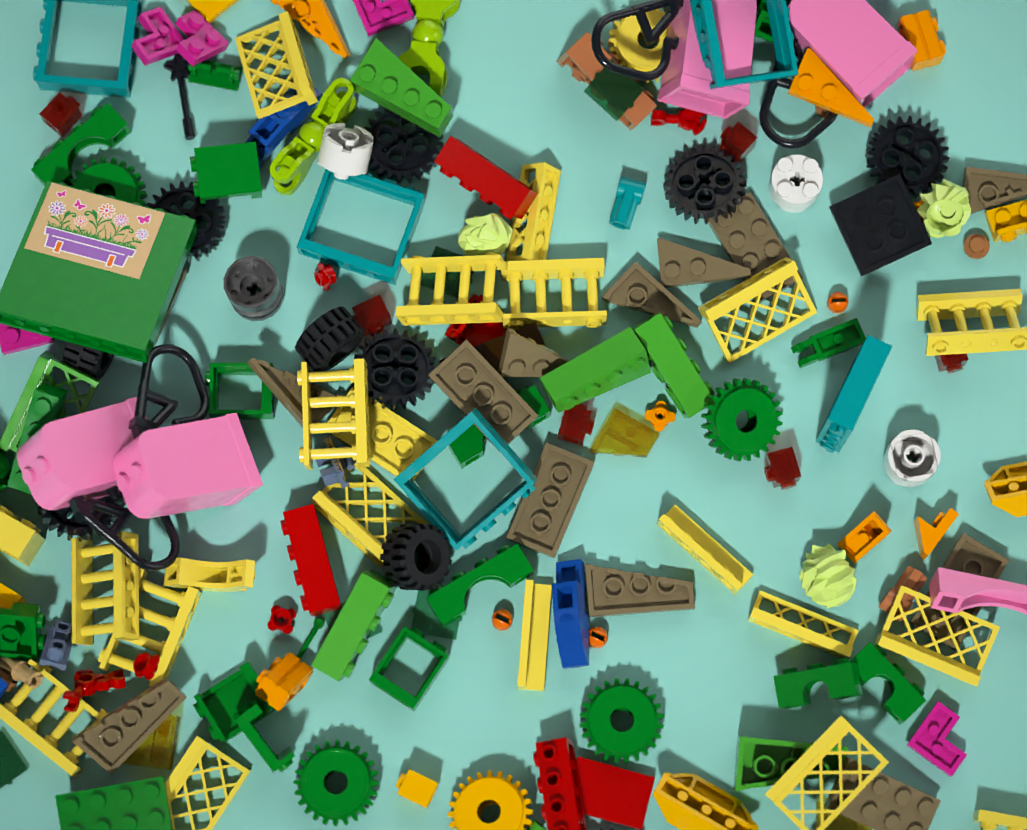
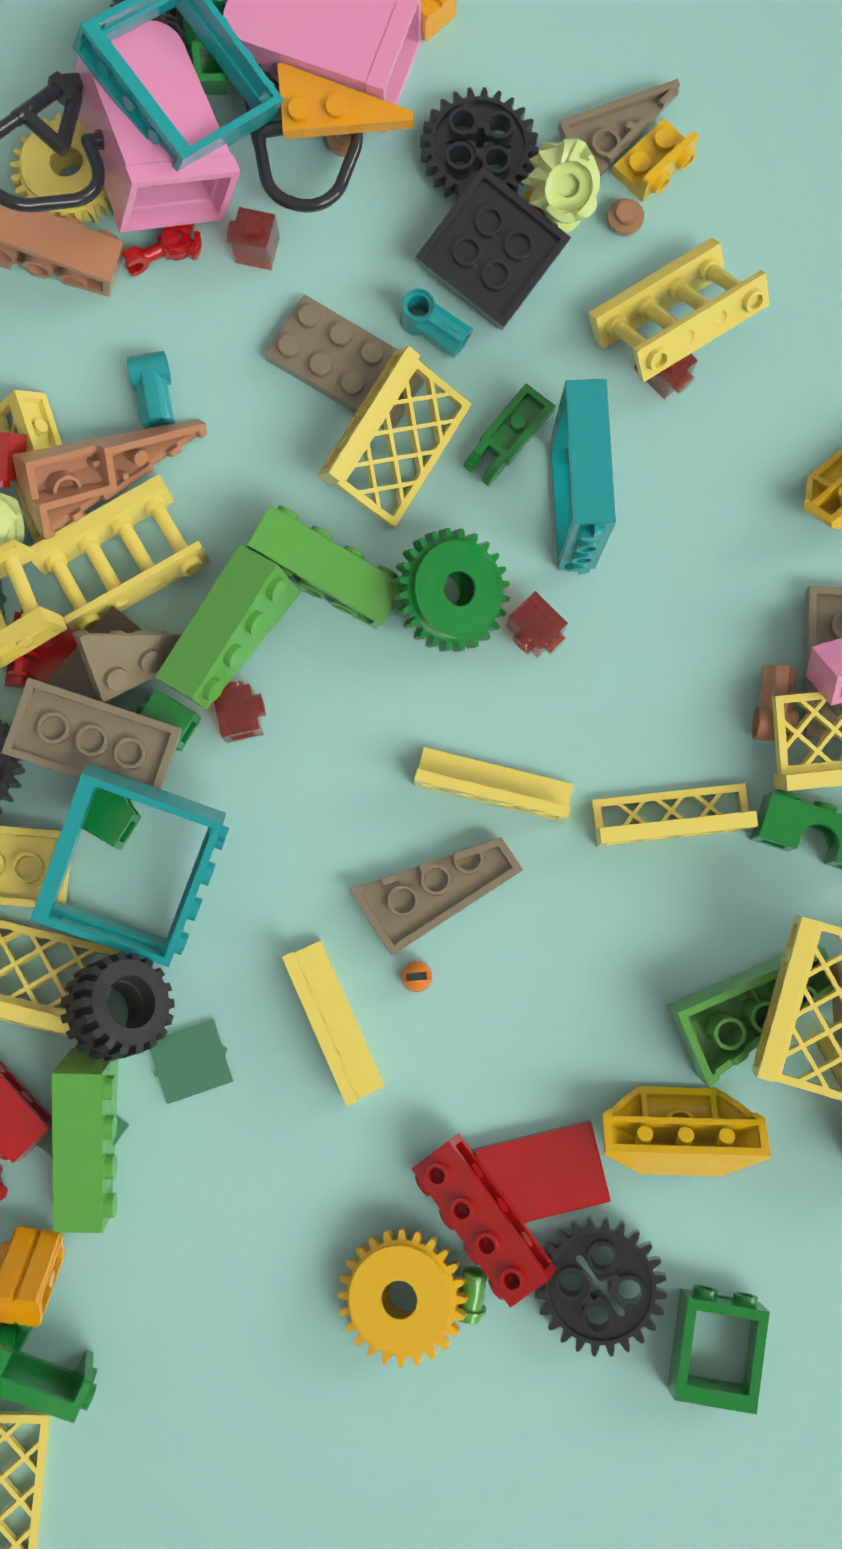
camera: 30 degrees left, 5 degrees up
(314, 777) = (165, 1402): green gear -> none
(318, 624) = (37, 1162): green hinge -> none
(395, 691) = (188, 1199): green window -> none
(416, 788) = (286, 1315): yellow brick -> none
(499, 624) = (280, 1012): orange hinge -> none
(507, 567) = (197, 1036): green arch -> none
(549, 508) = (263, 836): dark tan plate -> none
(553, 233) = (74, 476): none -> nougat wedge
(570, 615) = (364, 969): blue slope -> none
(613, 92) = (54, 247): clear green piece -> none
(614, 742) = (513, 1105): green gear -> none
(624, 436) = (311, 694): clear yellow wing -> none
(643, 293) = (239, 495): dark tan wing -> none
(660, 423) = (345, 653): light orange plate -> none
(687, 172) = (240, 313): black gear -> none
(689, 267) = (278, 429): dark tan wing -> none
(794, 687) = (763, 861): green arch -> none
(805, 173) = (356, 251): white brick -> none
(822, 253) = (436, 325): none -> teal piece
(827, 576) = (671, 735): yellowish green hair -> none
(837, 307) = (494, 382): orange hinge -> none
(864, 537) = (690, 658): light orange slope -> none
(922, 448) = (692, 504): white brick -> none
(929, 536) = (770, 614): light orange slope -> none

